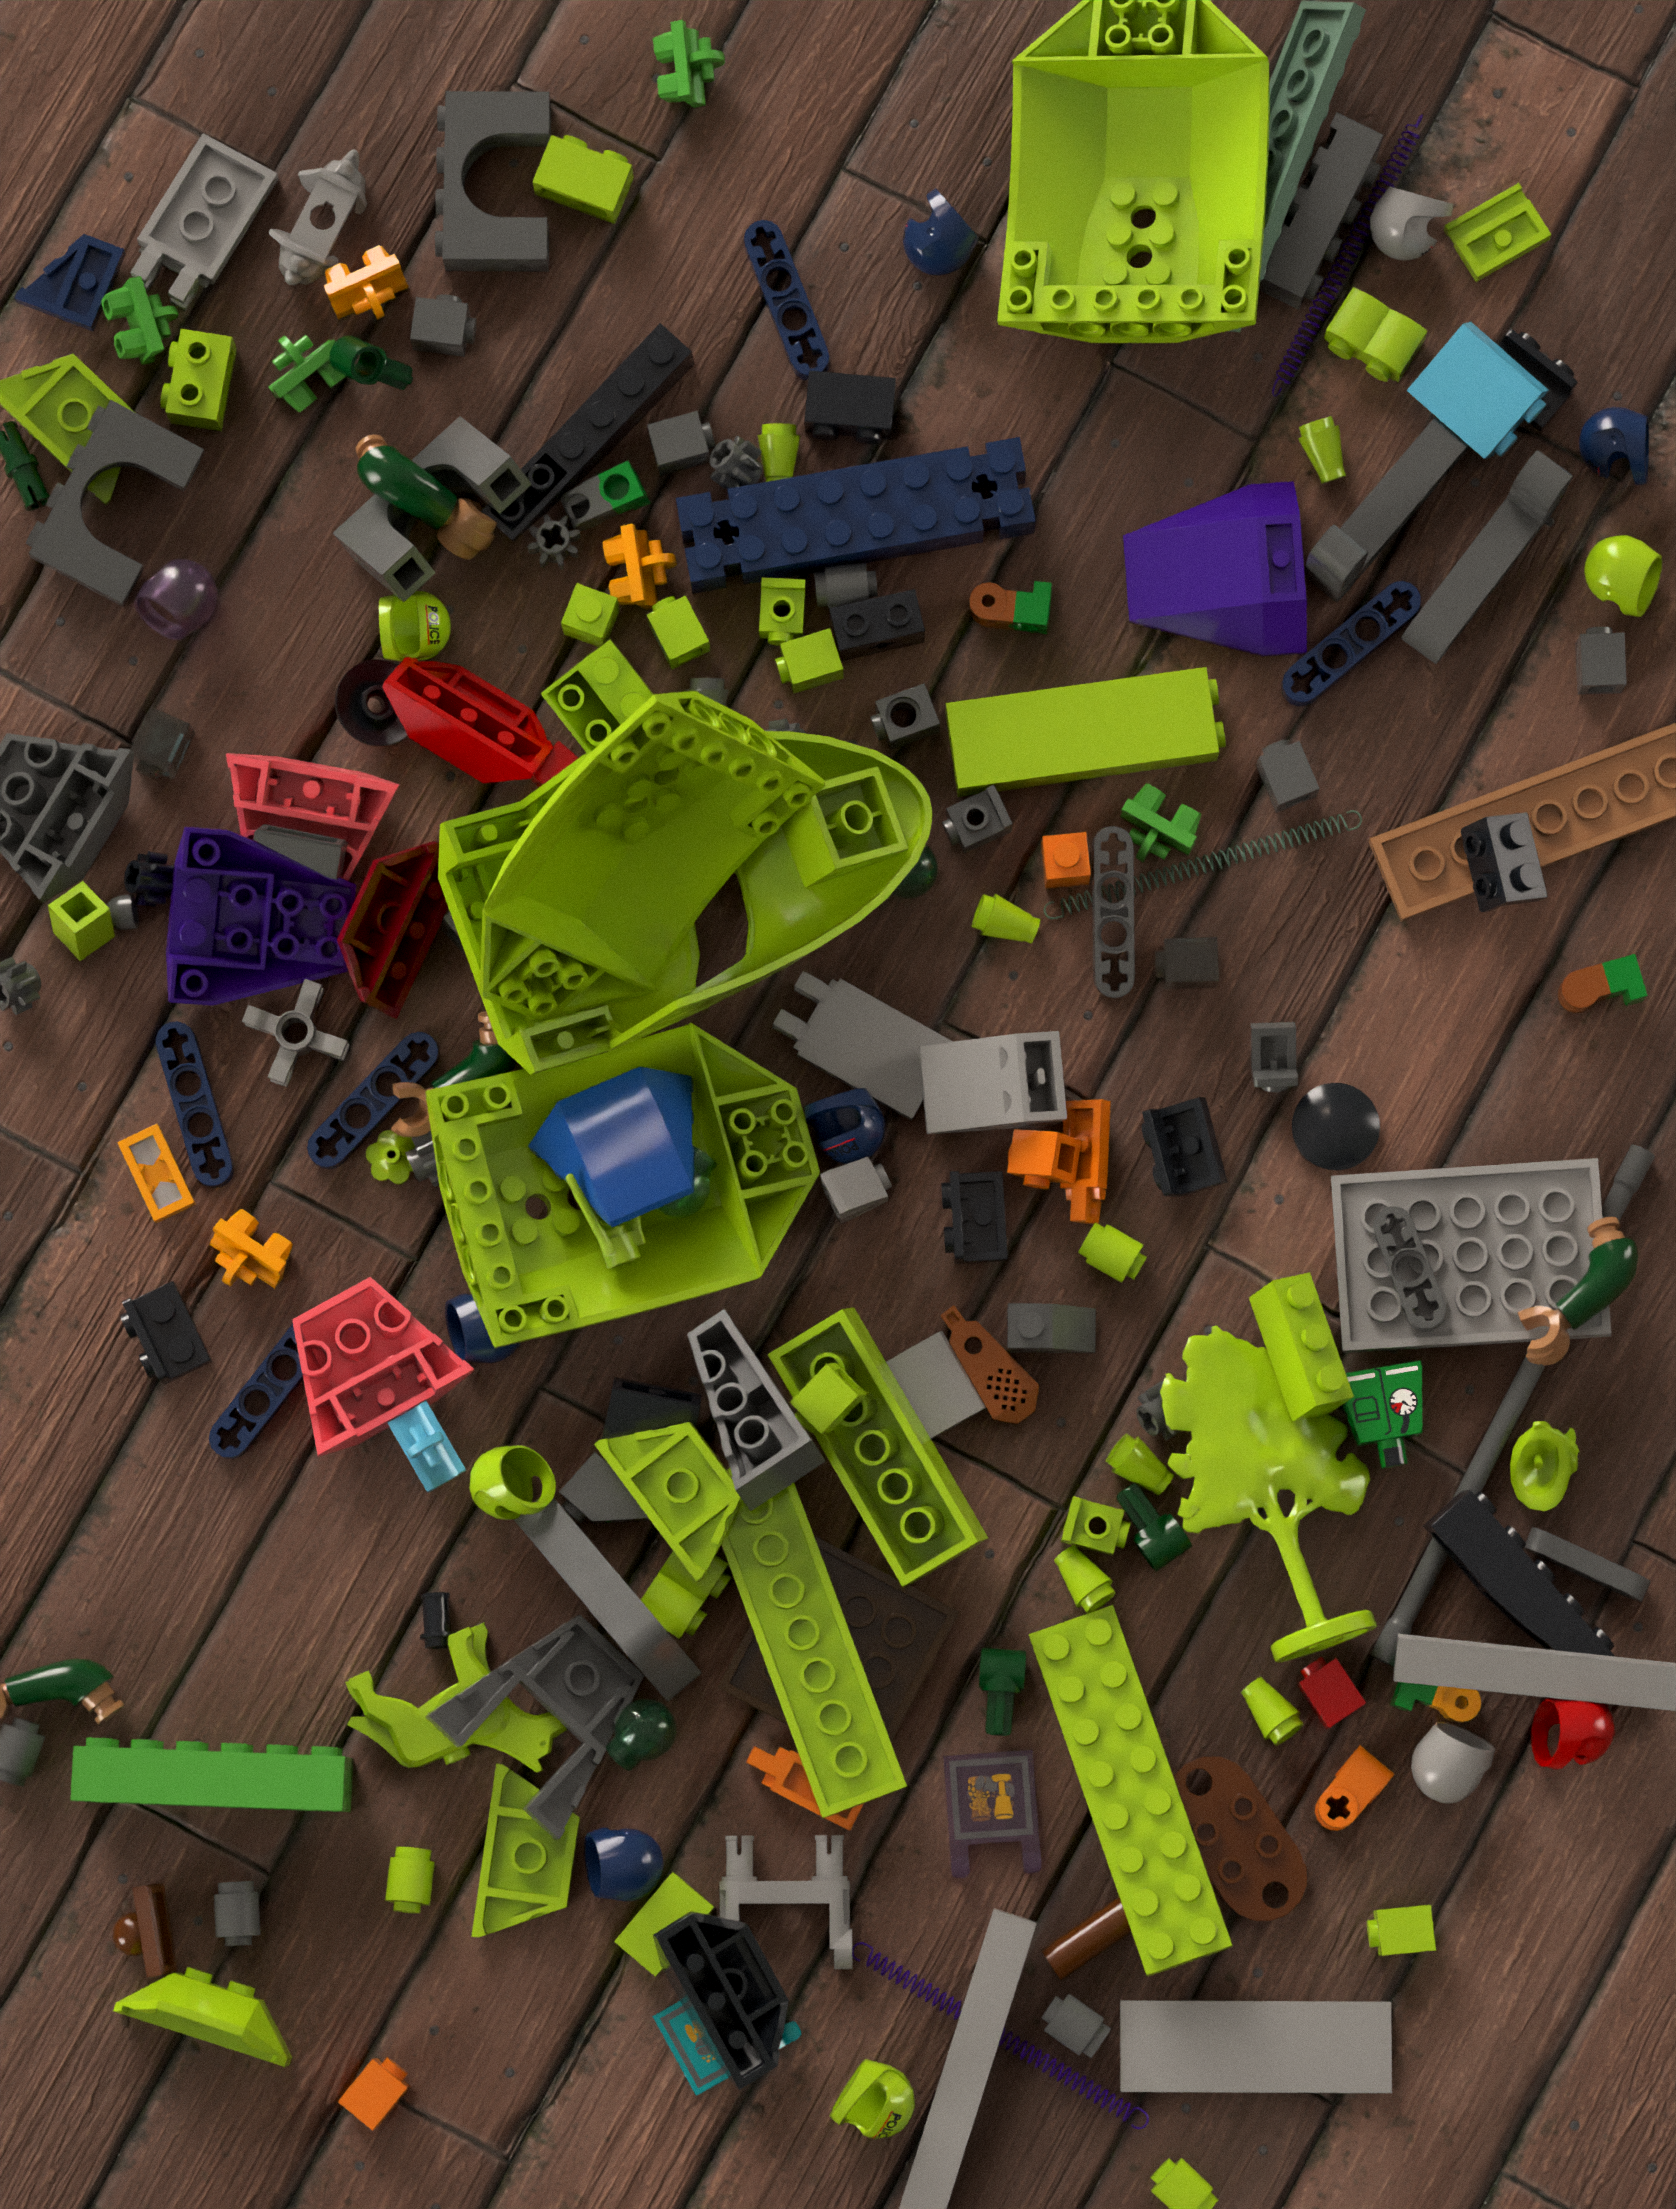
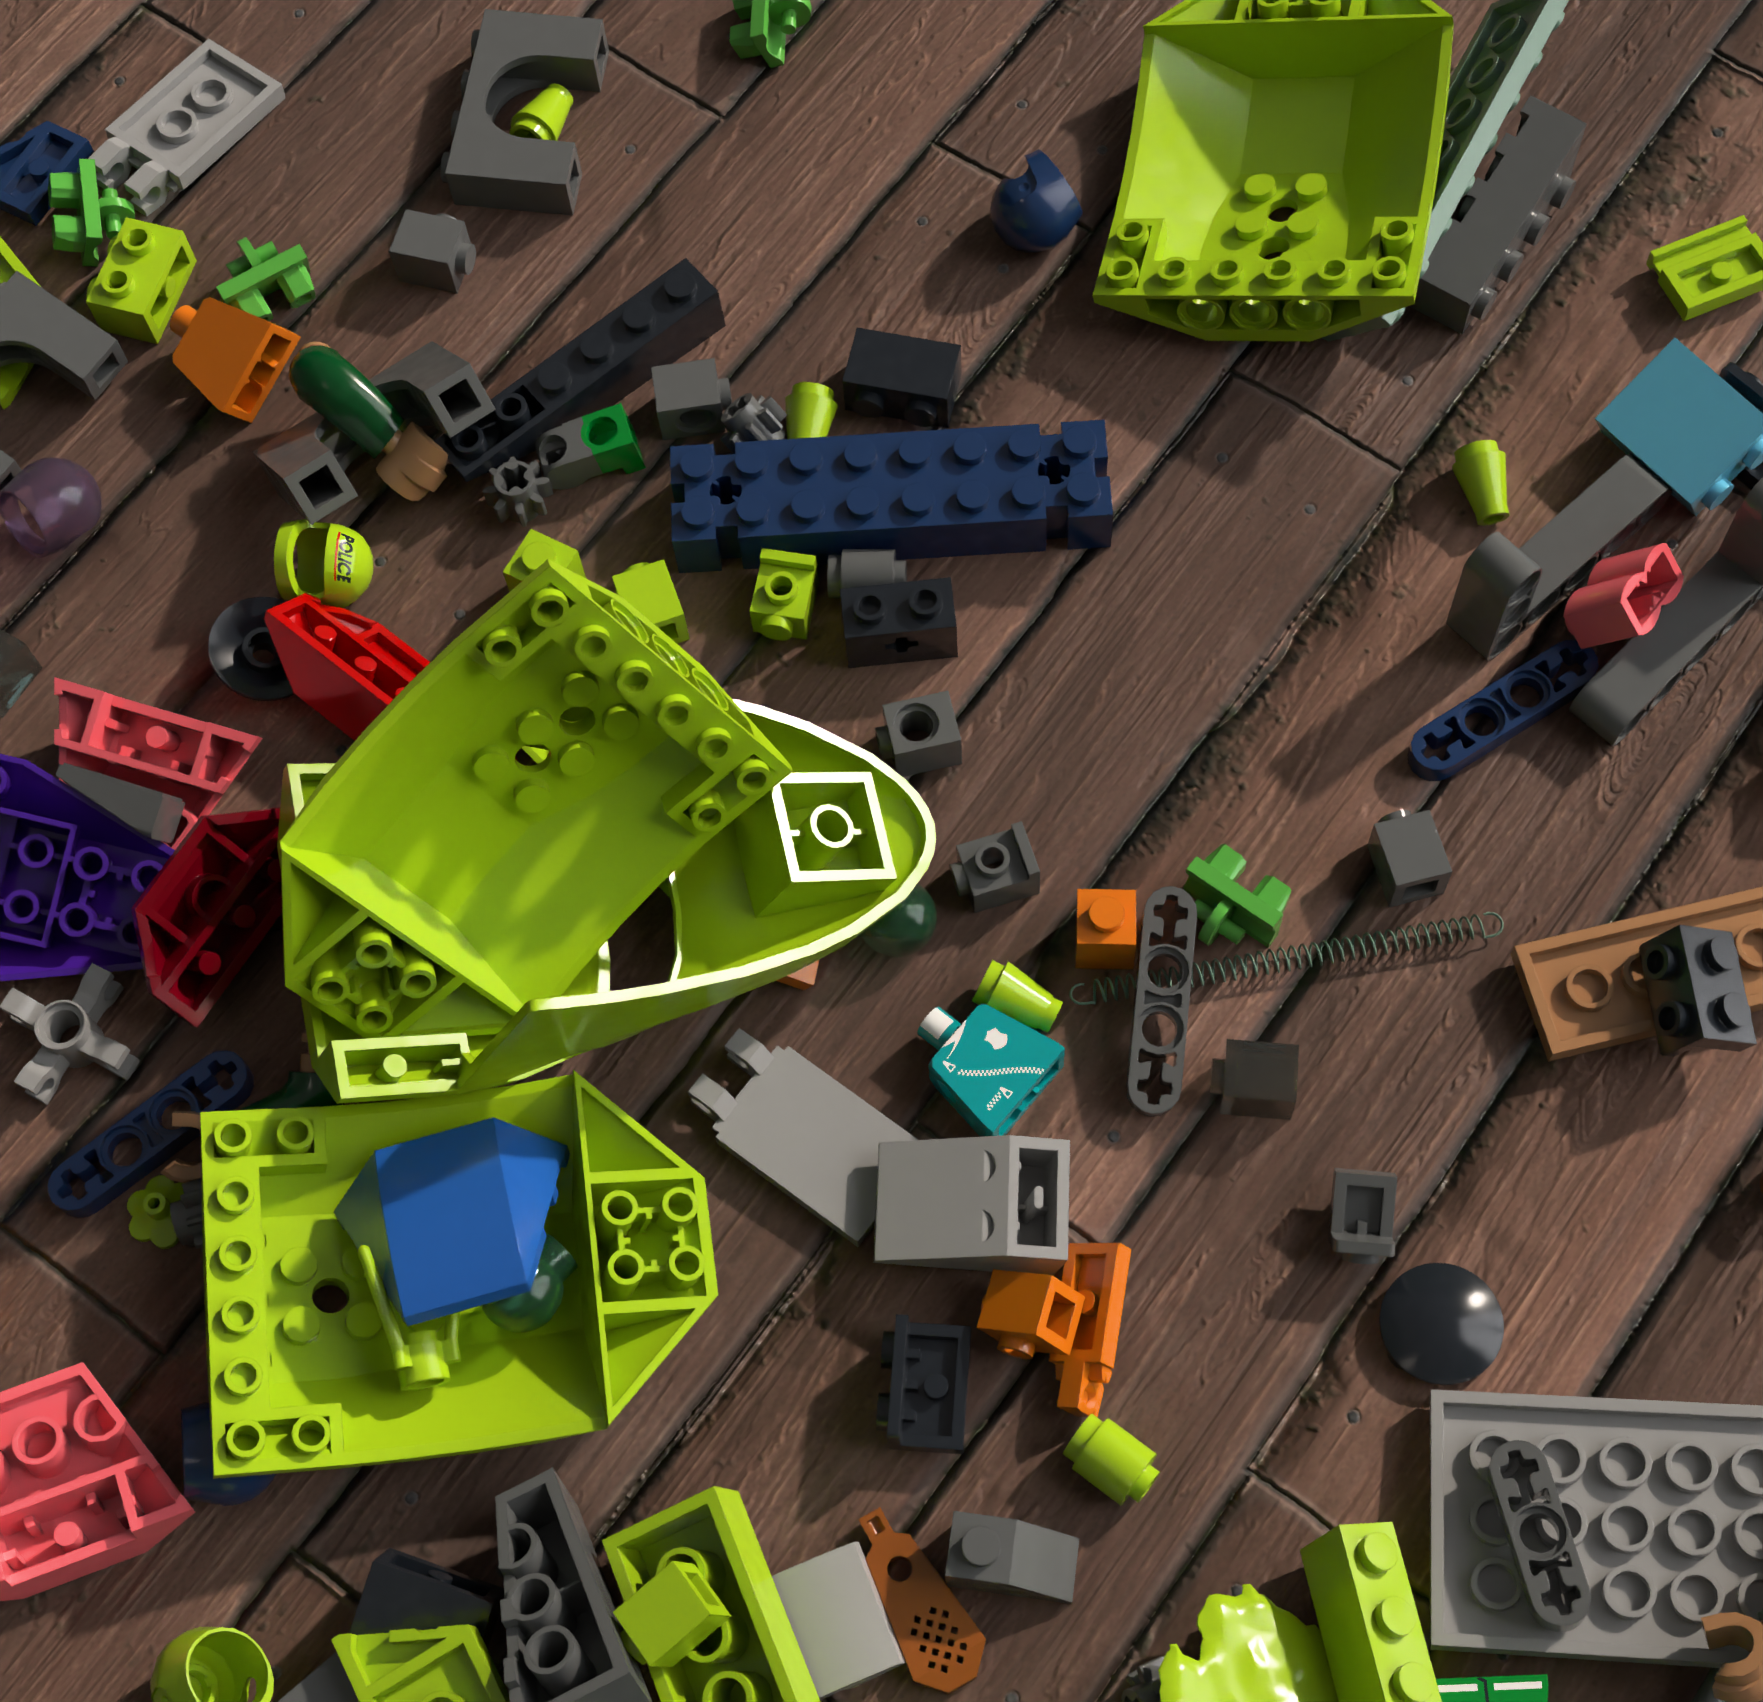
camera: 10 degrees right, 15 degrees down
(294, 445) = (230, 355): none -> orange torso
(307, 249) = (295, 156): light grey piece -> none
(367, 286) = (354, 201): light orange hips -> none
(372, 364) = (341, 278): dark green axle -> none
(427, 1446) = (108, 1614): medium azure hips -> none
(509, 188) = (544, 115): none -> lime cone
(583, 178) = (627, 117): lime brick -> none
(644, 564) = (621, 527): light orange hips -> none
(789, 299) = (846, 264): dark blue beam -> none
(809, 661) = (809, 657): lime brick -> none
(847, 1125) = (766, 1235): dark blue helmet -> none
(855, 1188) = (763, 1323): light grey slope -> none
(991, 977) = (989, 1066): none -> teal torso
(1012, 609) = (1072, 622): leg -> none
(1084, 731) = (1150, 775): lime brick -> none
(1183, 1148) = (1226, 1326): black bracket -> none
(1224, 572) = (1348, 611): dark purple wedge -> none
(1345, 259) = (1625, 142): dark purple piece -> none
(1375, 336) = (1557, 362): lime brick -> none
(1401, 223) = (1600, 235): light grey helmet -> none
(1435, 545) = (1623, 596): none -> coral brick

